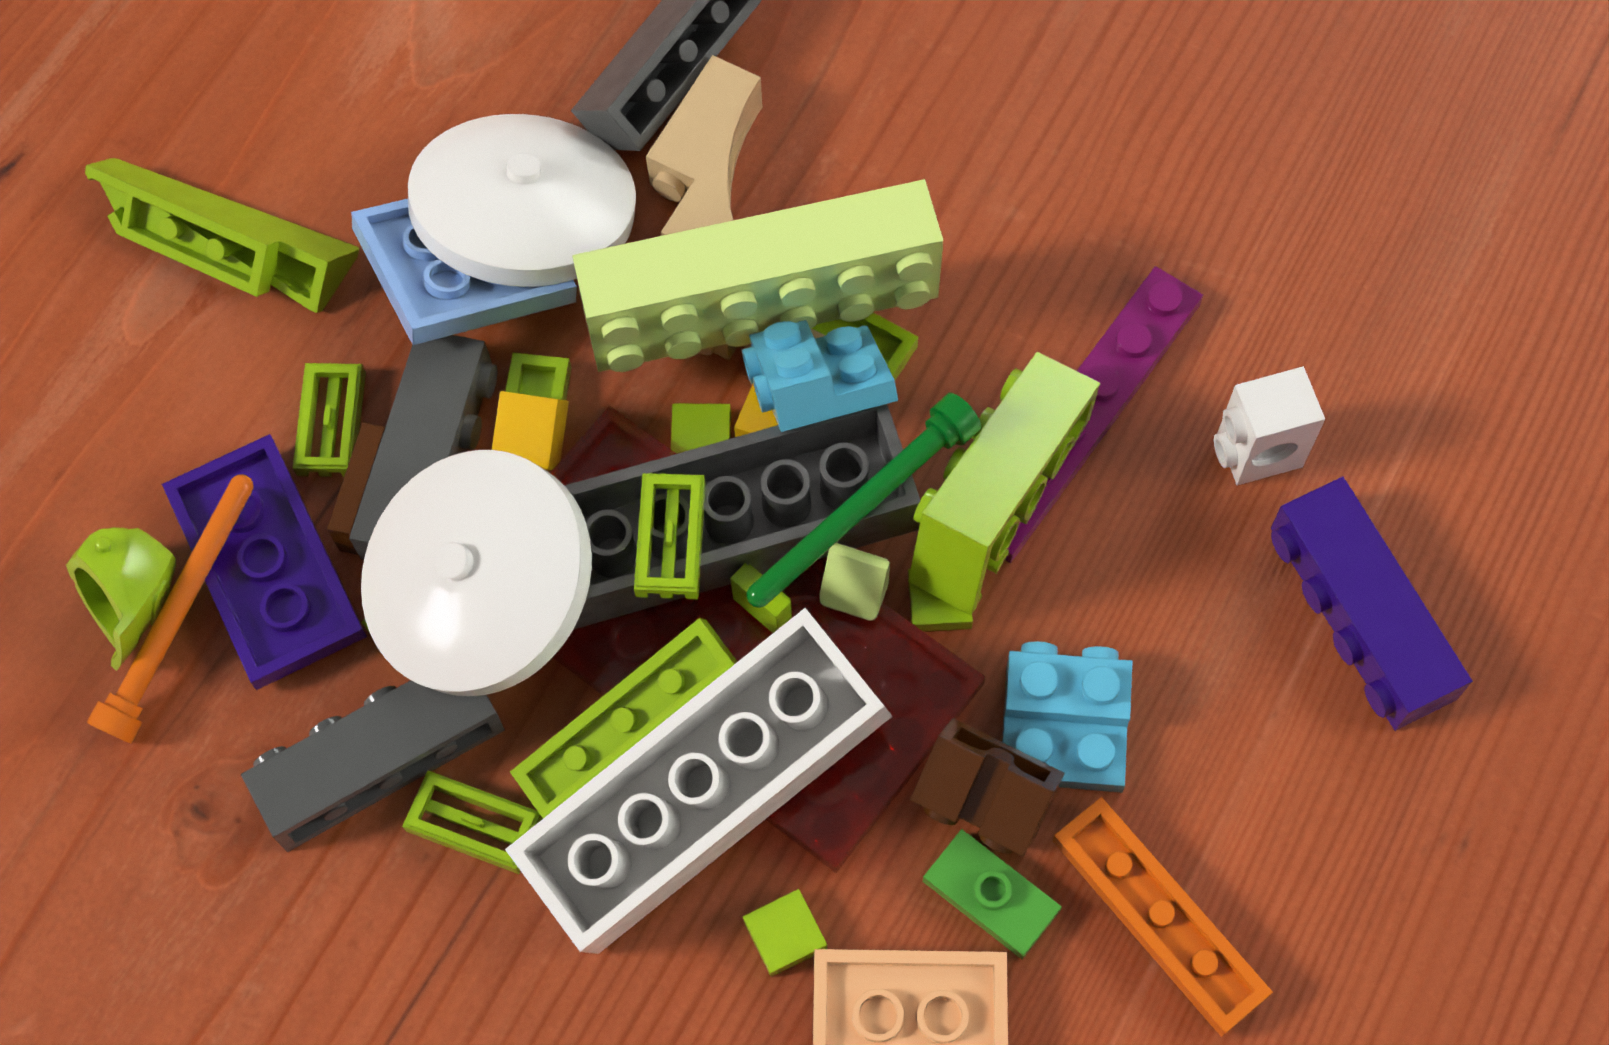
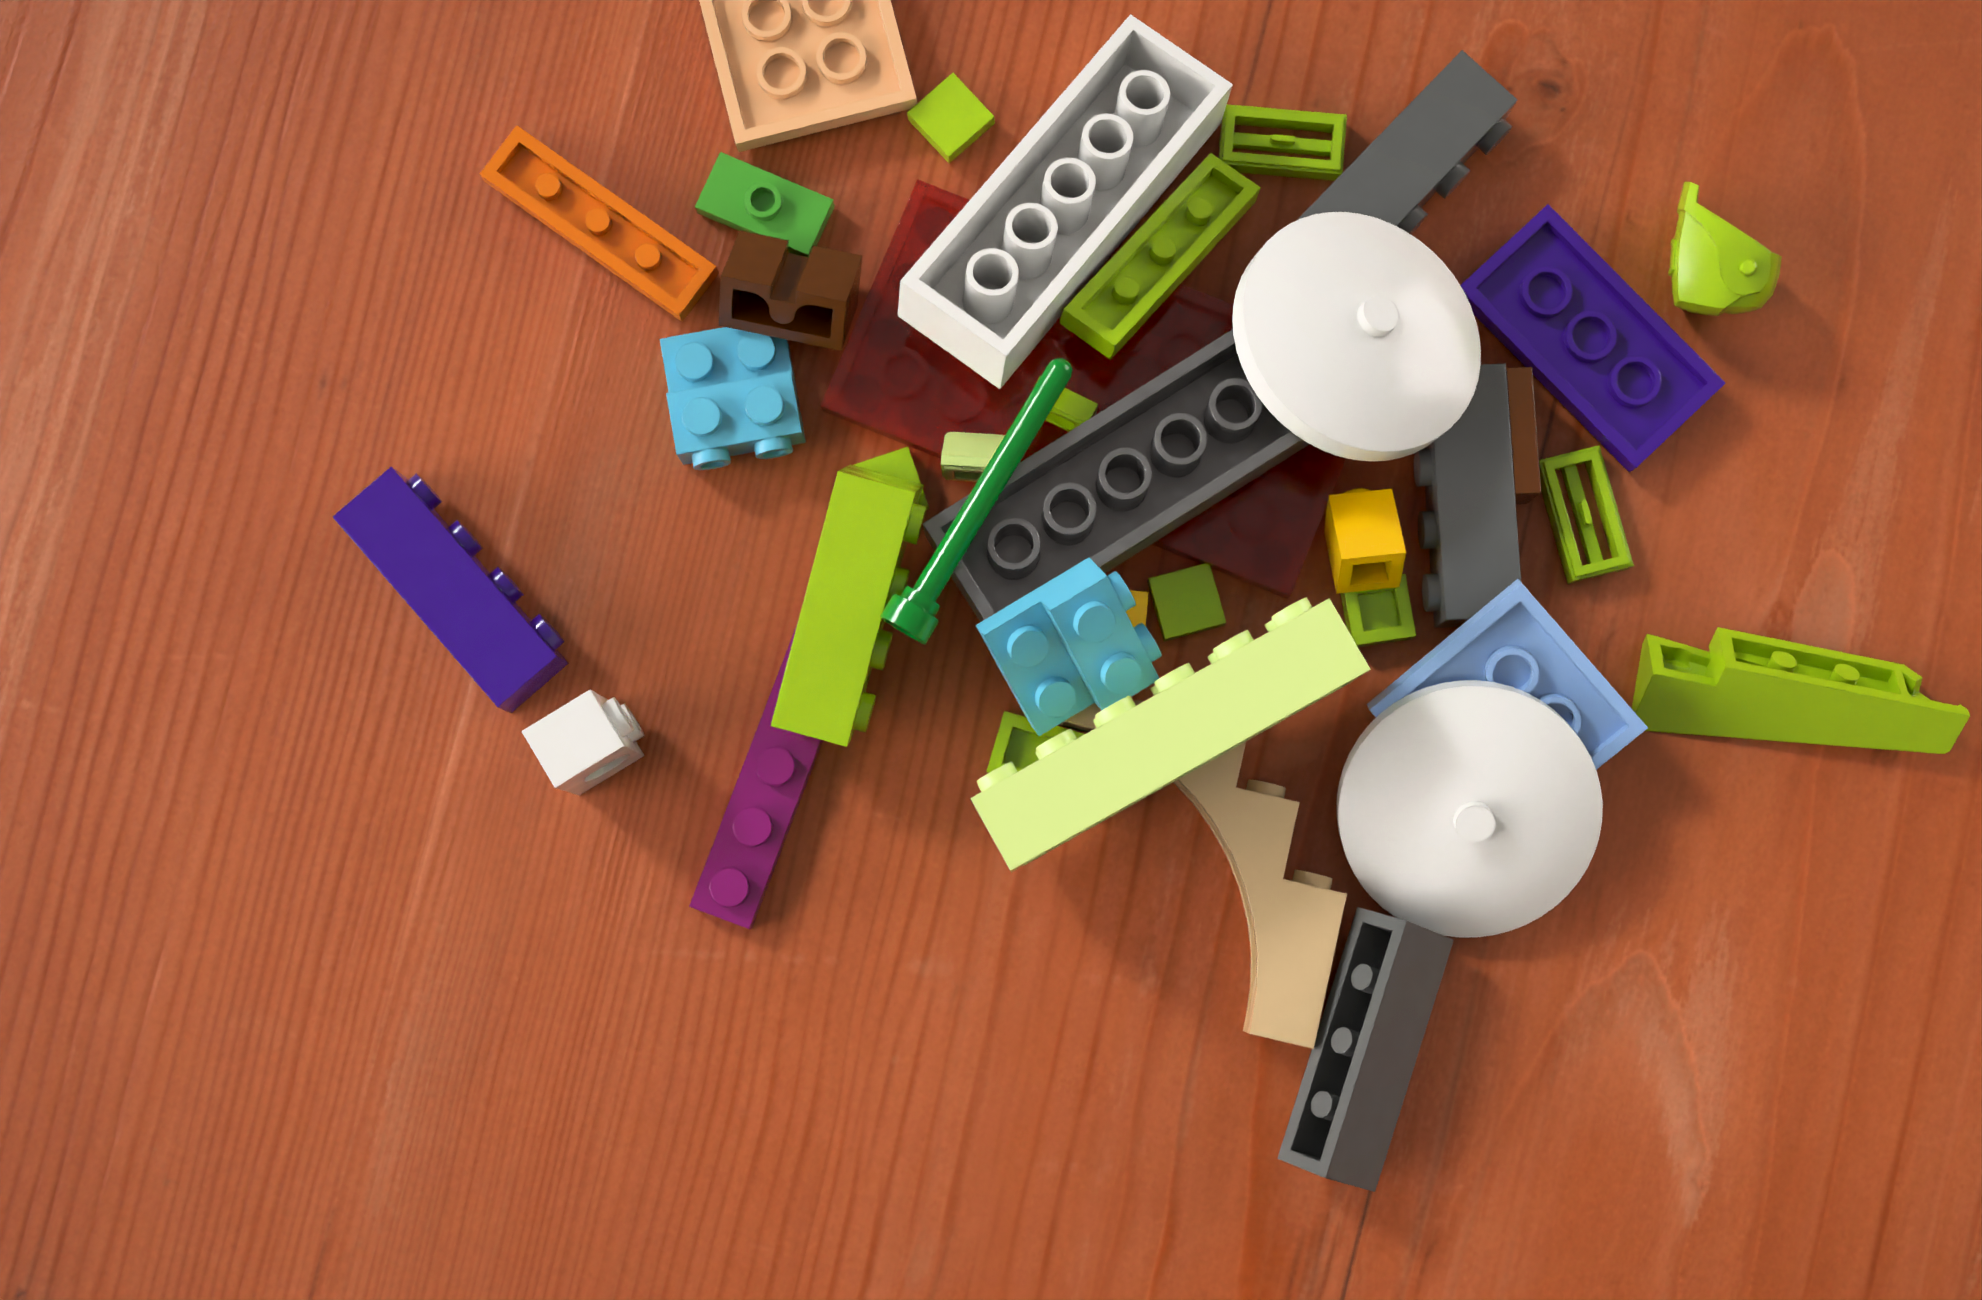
camera: 165 degrees right, 15 degrees up
(121, 711) = (1664, 142): orange piece -> none
(668, 584) = (1181, 464): lime tile -> none

